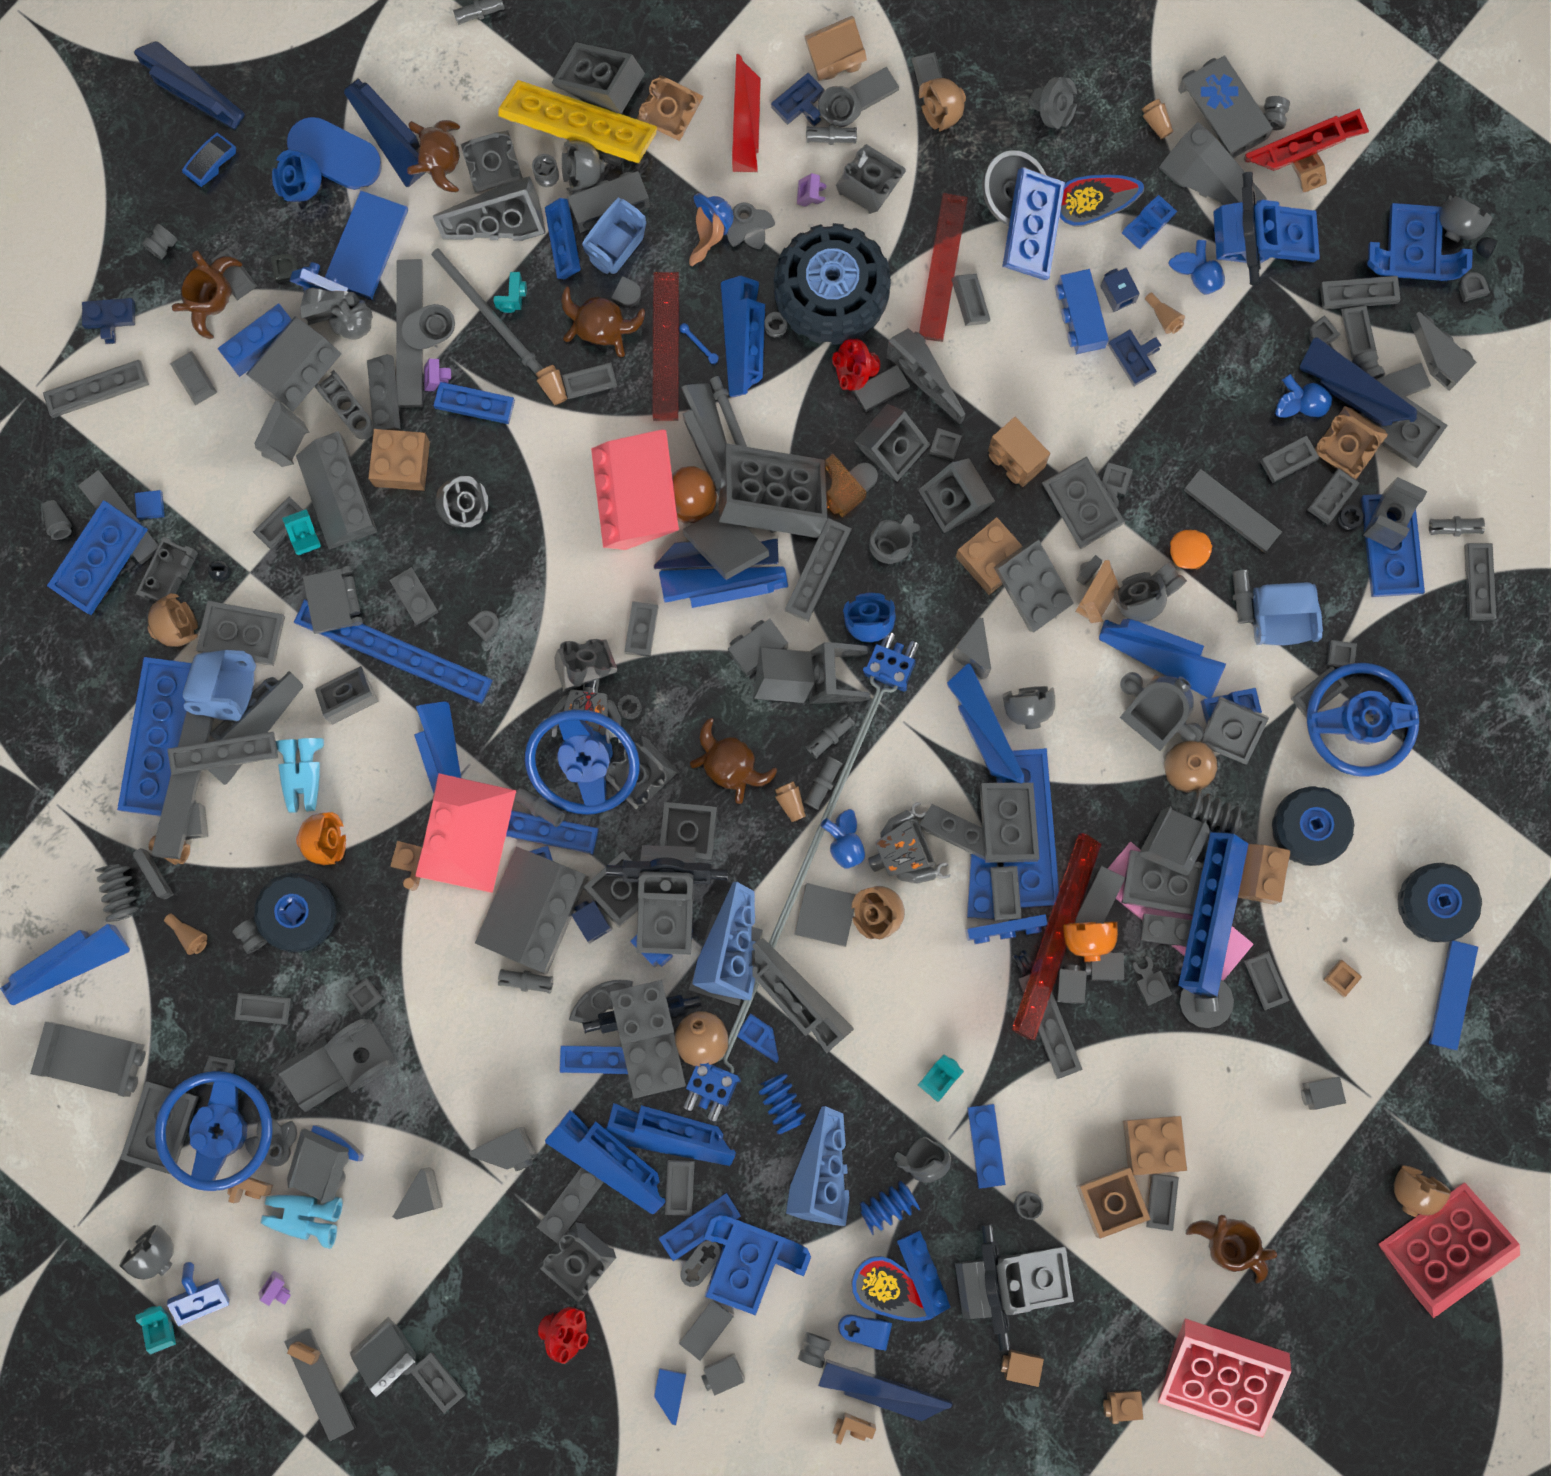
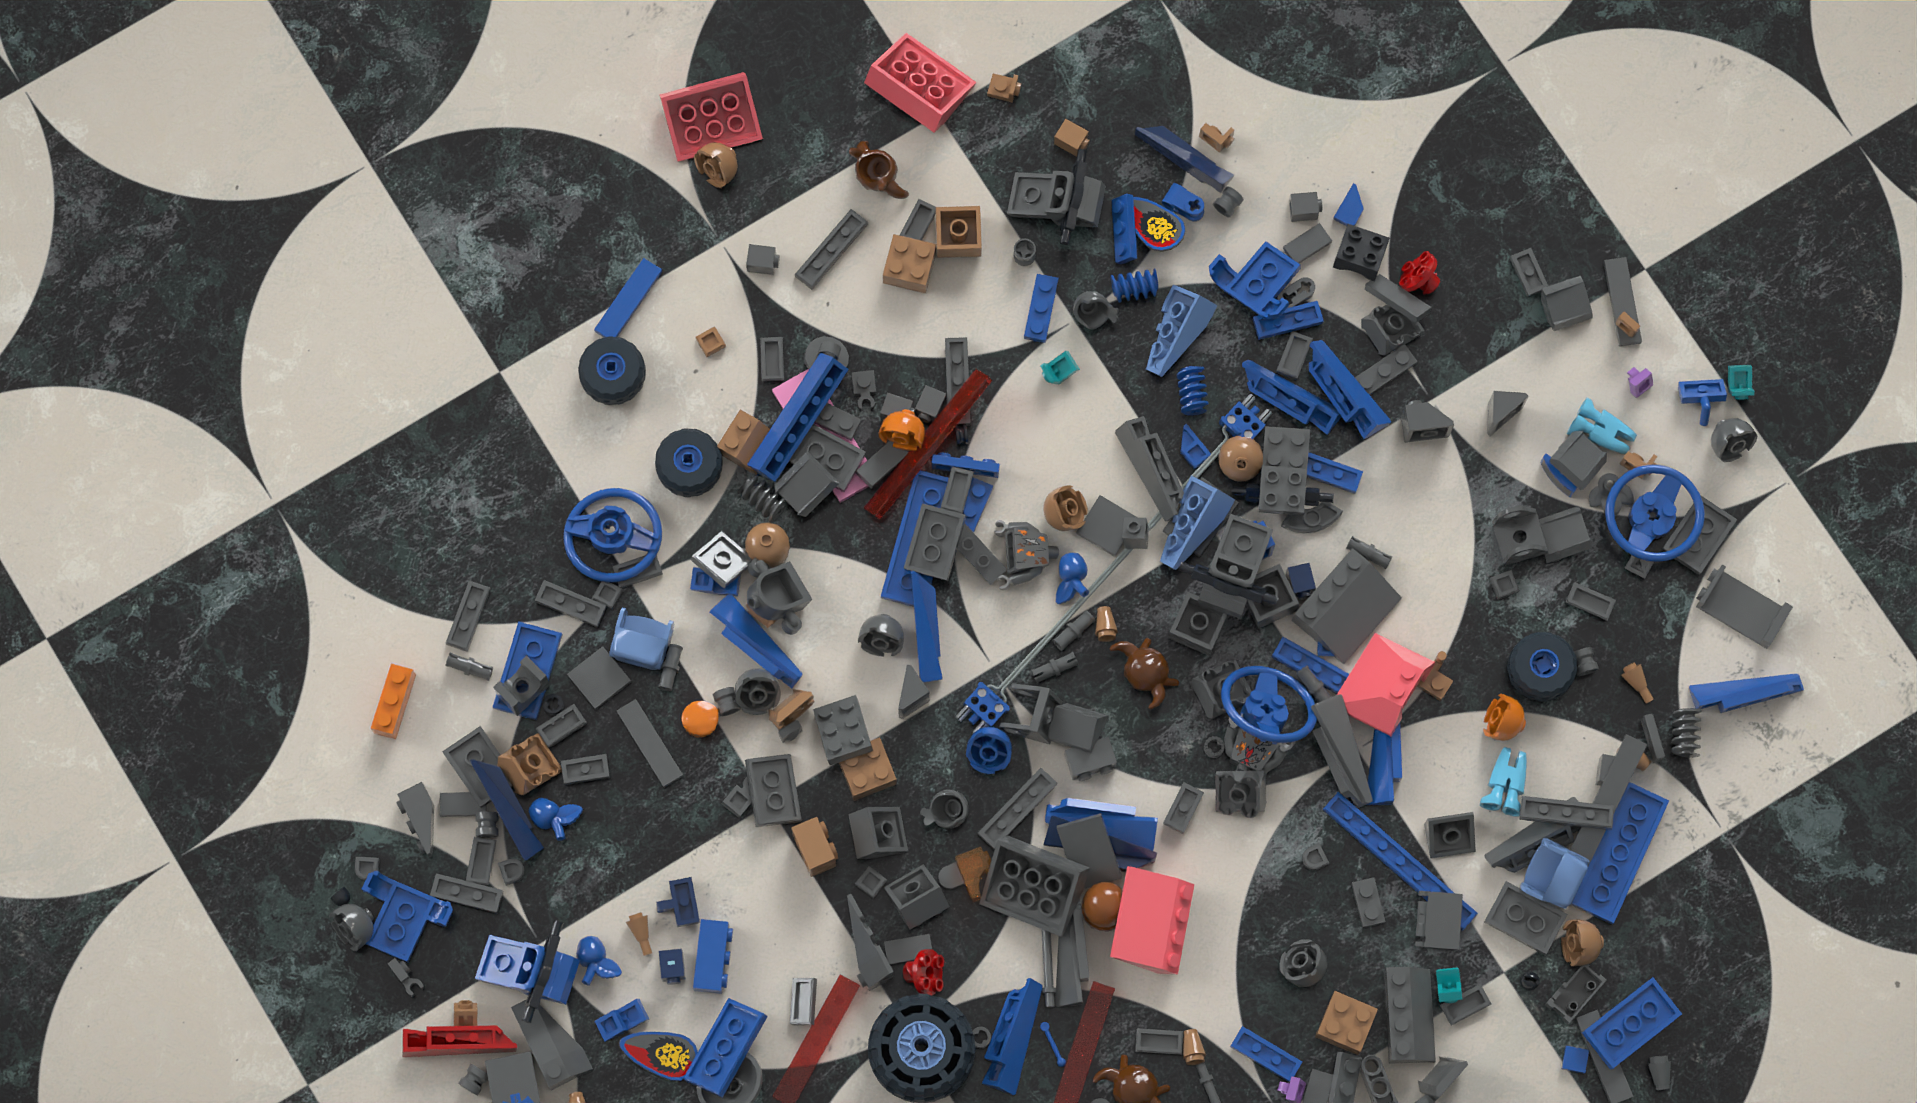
camera: 165 degrees left, 5 degrees down
(491, 744) = (1341, 750): none -> dark grey wedge
(580, 1294) = (1398, 298): none -> dark grey tile
(639, 1339) = (1361, 251): none -> black brick
(791, 909) = (1135, 533): none -> dark grey brick
(1249, 1135) = (831, 249): none -> dark grey tile
(1314, 560) = (599, 678): none -> dark grey tile
(1377, 629) = (570, 603): none -> dark grey plate
(1390, 189) = (401, 971): none -> dark grey plate
(1521, 460) = (393, 701): none -> orange brick

